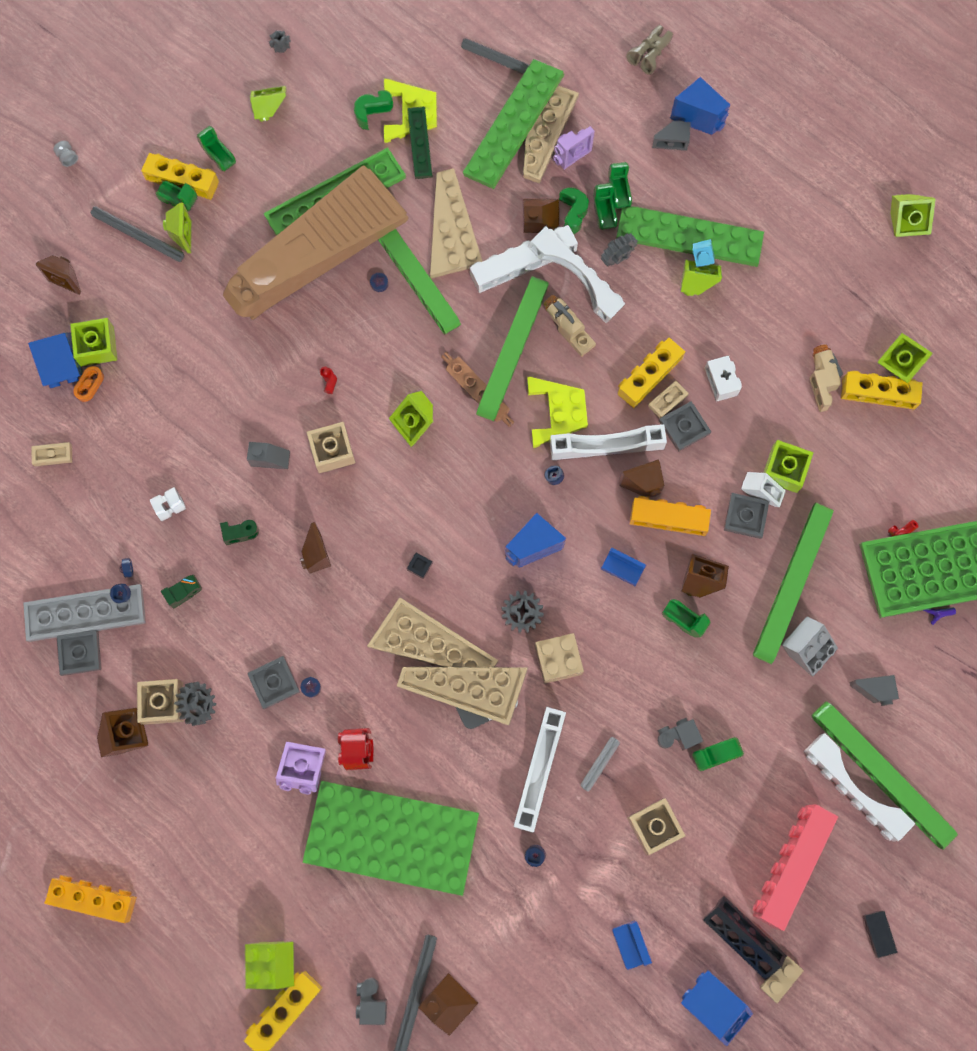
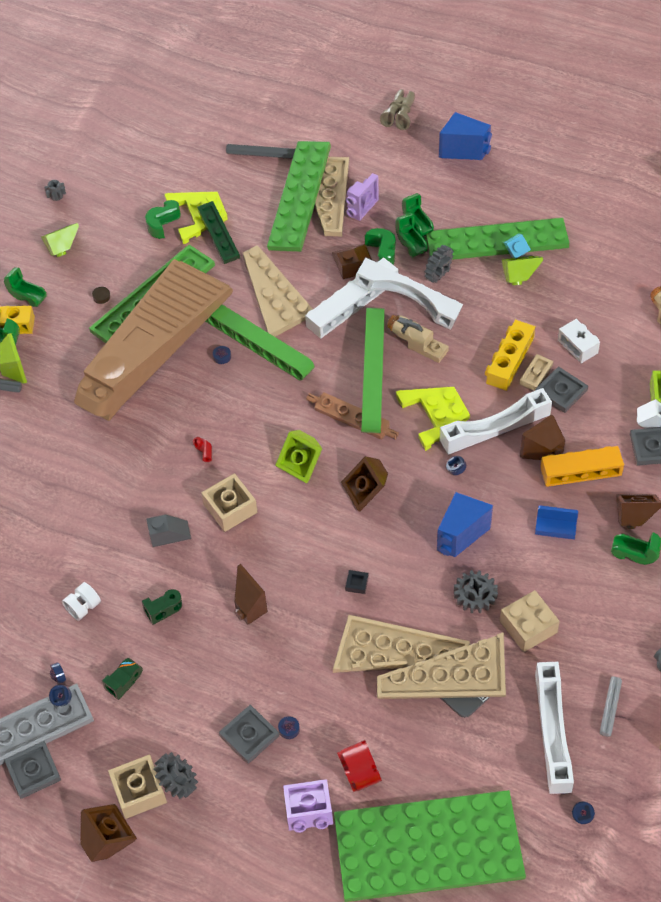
camera: 15 degrees left, 20 degrees down
(287, 177) = (101, 295): none -> dark brown tile
(464, 466) = (365, 481): none -> reddish brown slope
(673, 136) = (449, 167): dark grey slope -> none

